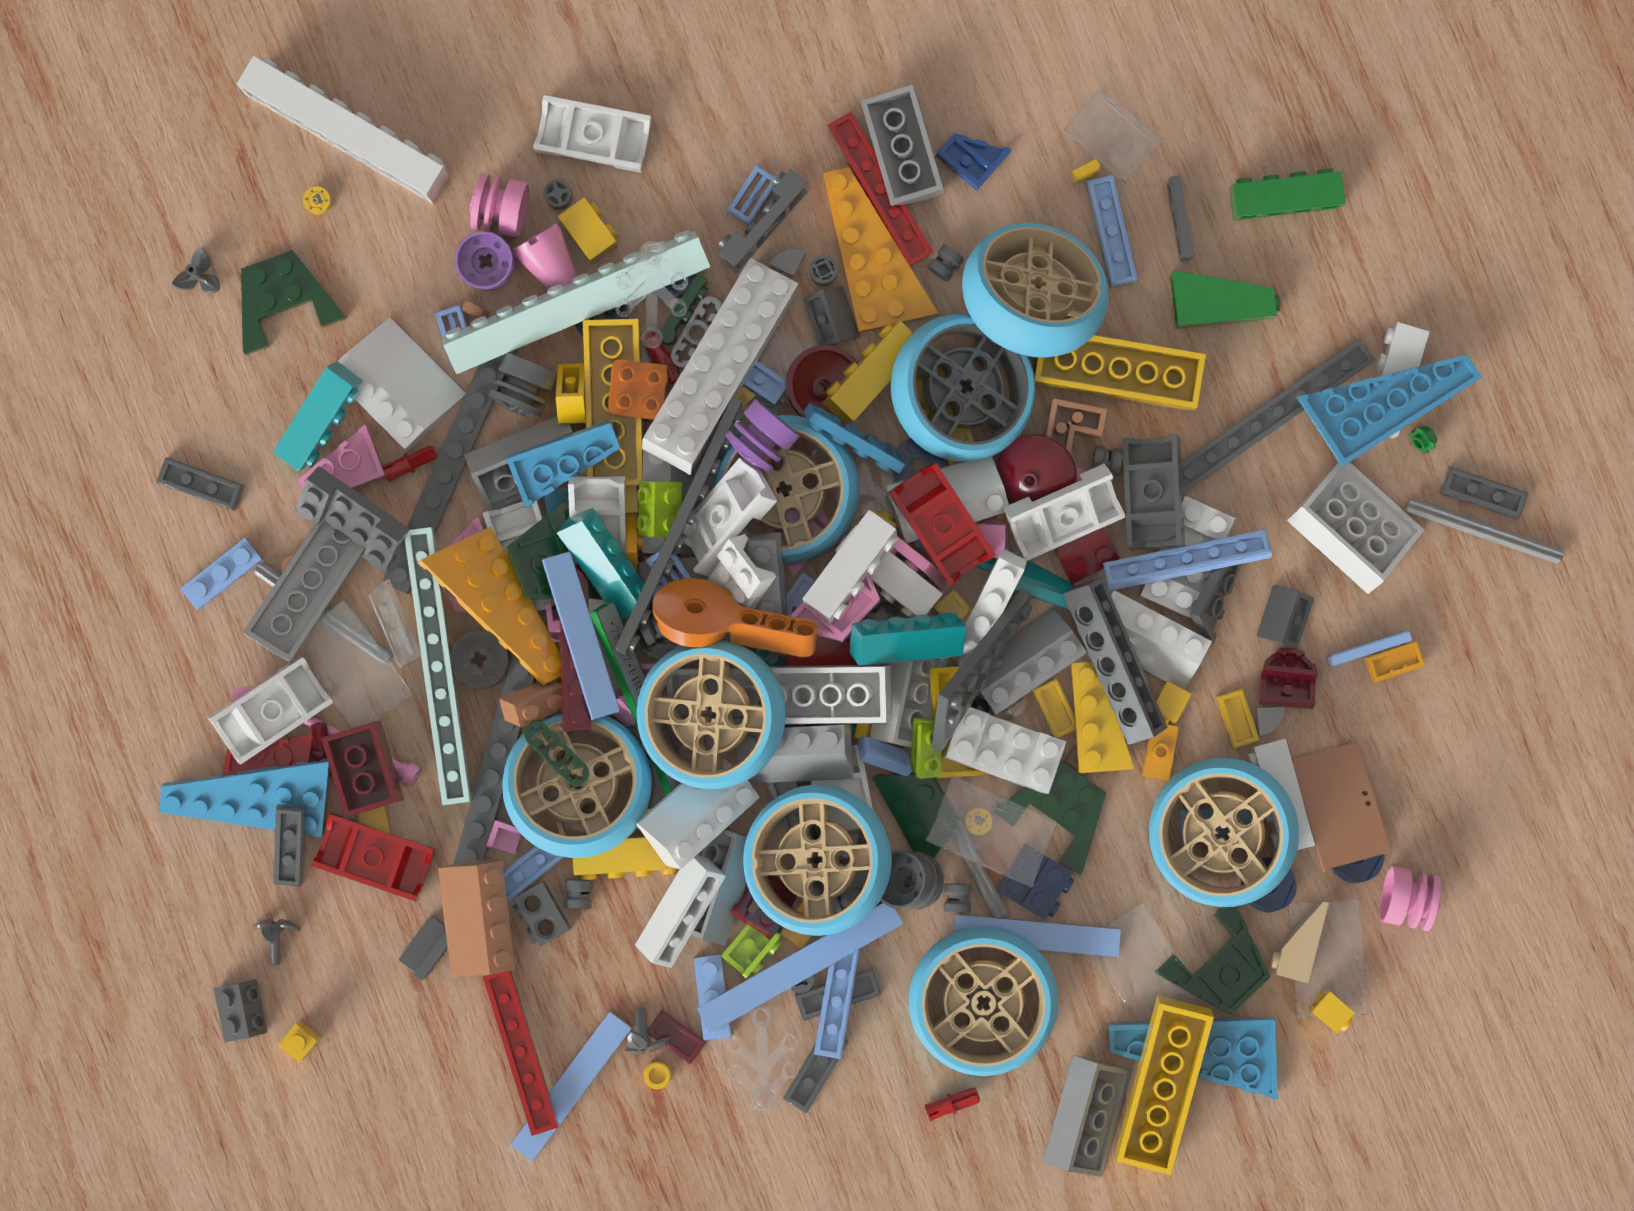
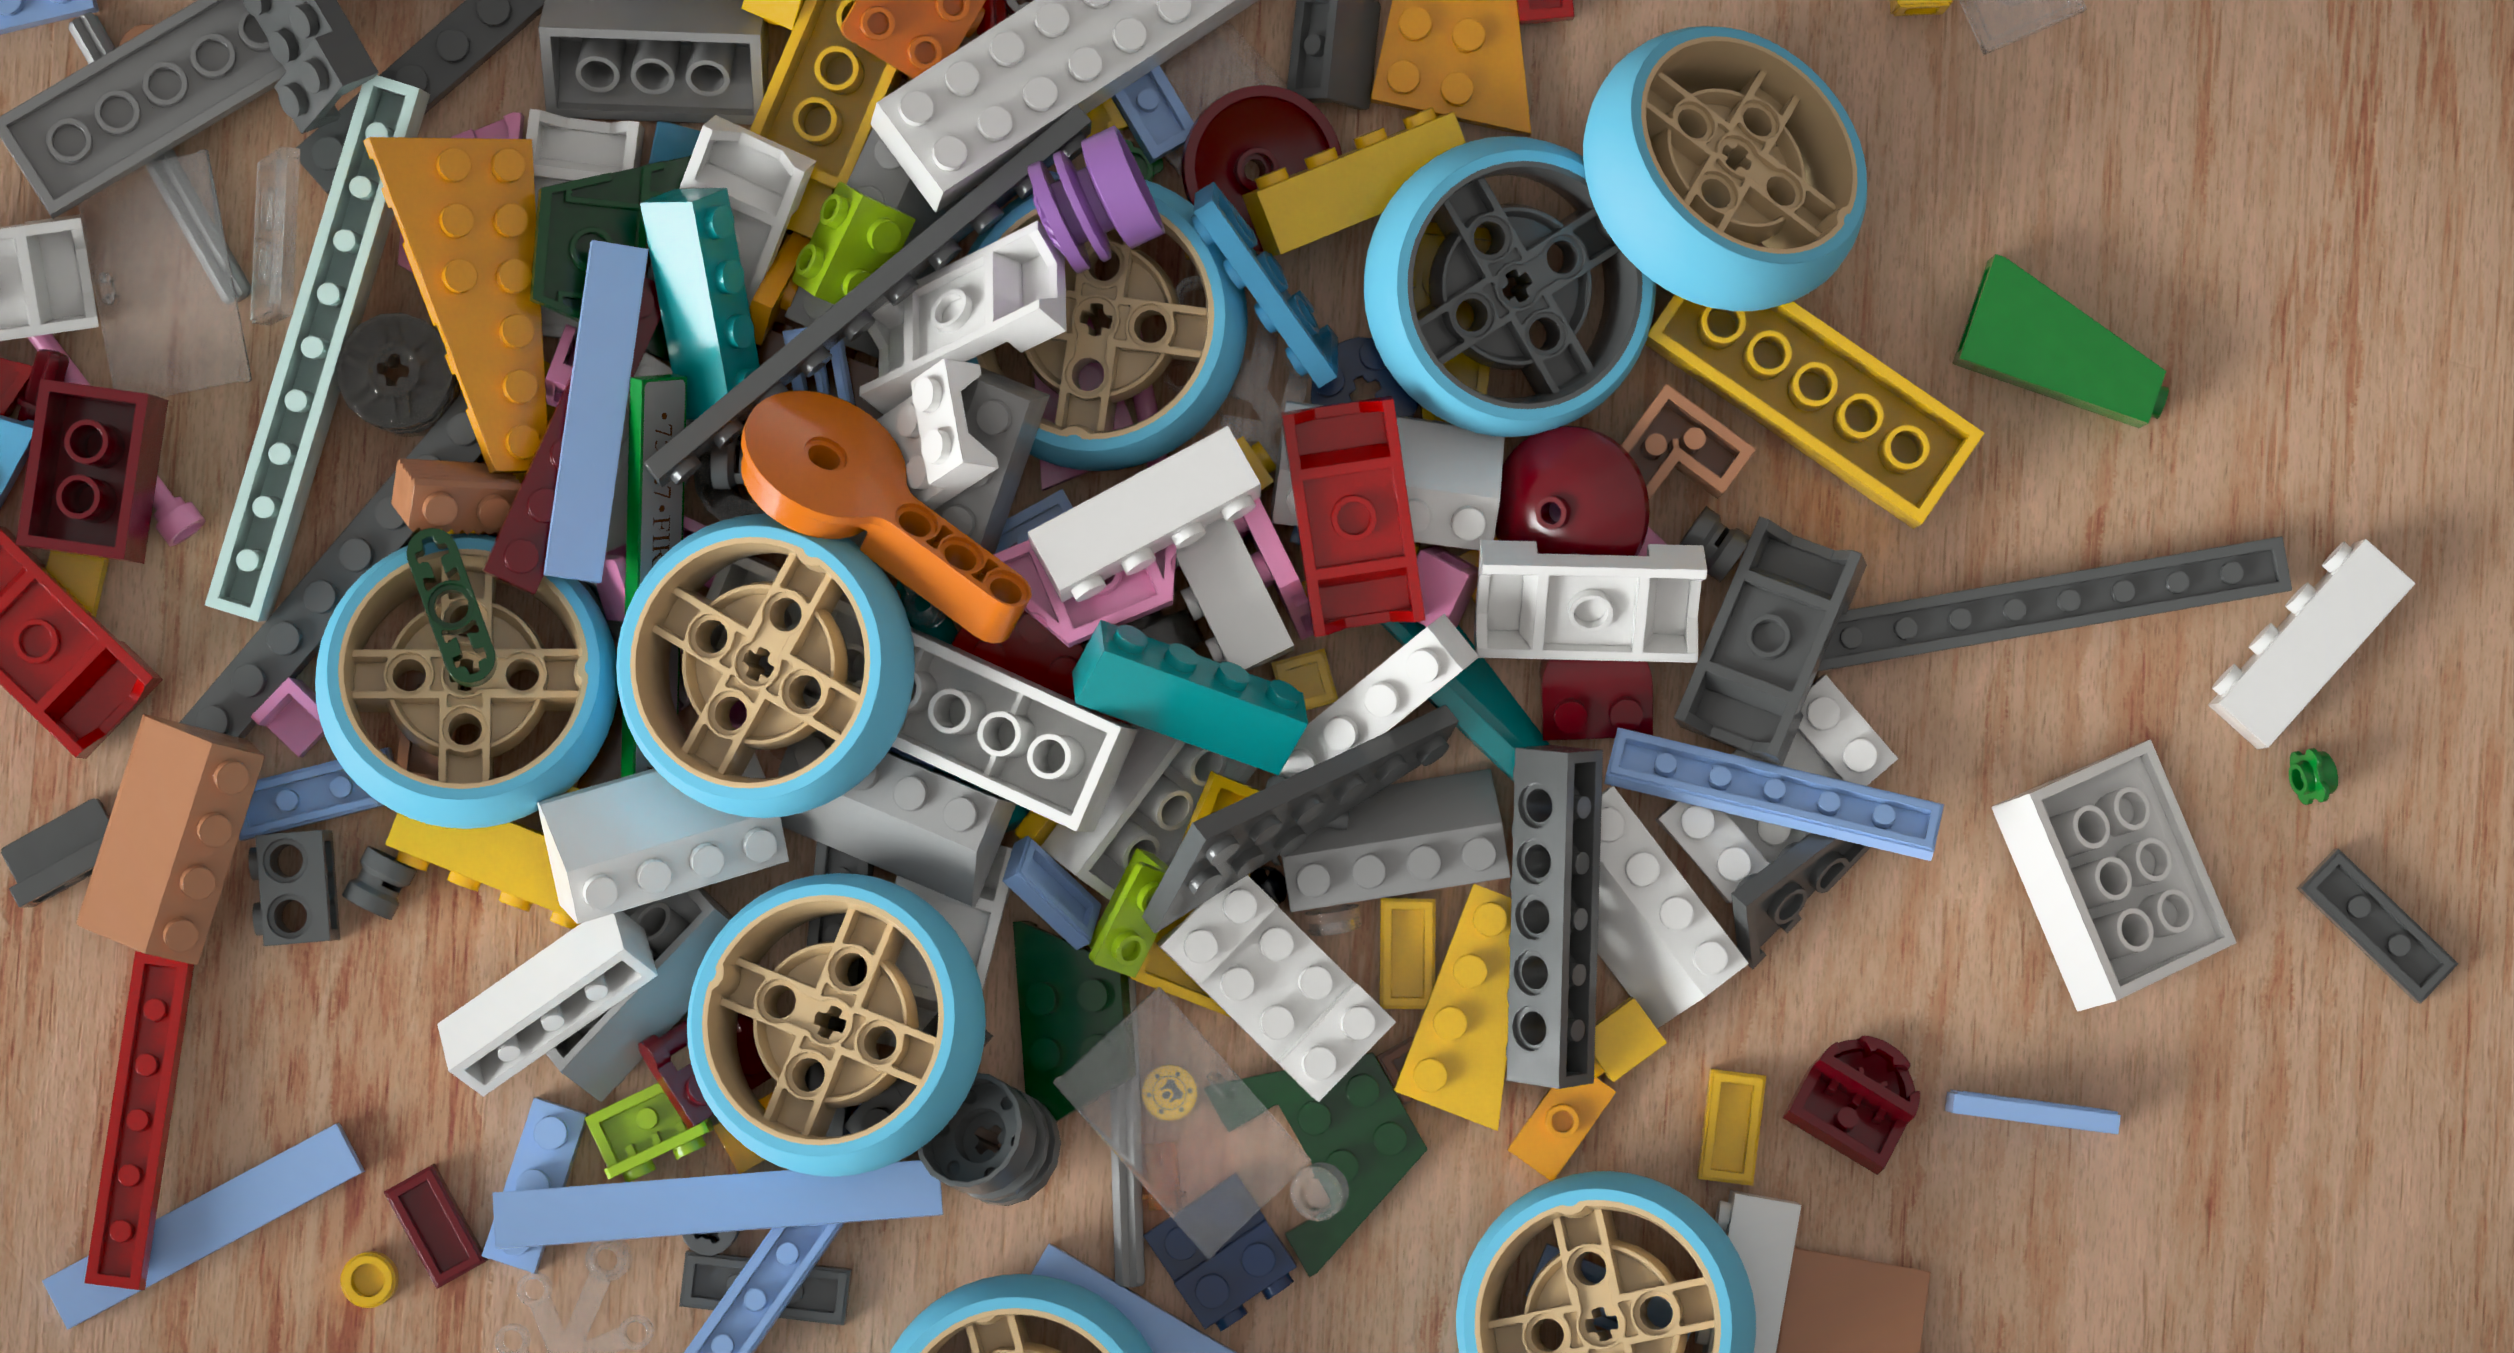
camera: 30 degrees right, 0 degrees up
(552, 463) = (691, 75): dark azure wing -> none
(638, 1040) = (362, 1204): dark grey plant -> none
(945, 262) = (1587, 47): dark grey wheel -> none
(960, 891) = (1067, 1201): dark grey wheel -> none
(1067, 834) = (1319, 1191): none -> clear tile
(1111, 231) = (1919, 131): light blue tile -> none
(1180, 219) = (2053, 165): dark grey tile -> none
(1268, 719) = (1788, 1155): light grey tile -> none
(1285, 616) = (1906, 981): dark grey panel -> none
(1287, 195) = (2271, 213): green brick -> none
(1373, 409) = (2243, 677): dark azure wing -> none
(1394, 661) = (2068, 1158): light orange plate -> none
(1484, 530) = (2346, 996): light grey axle -> none

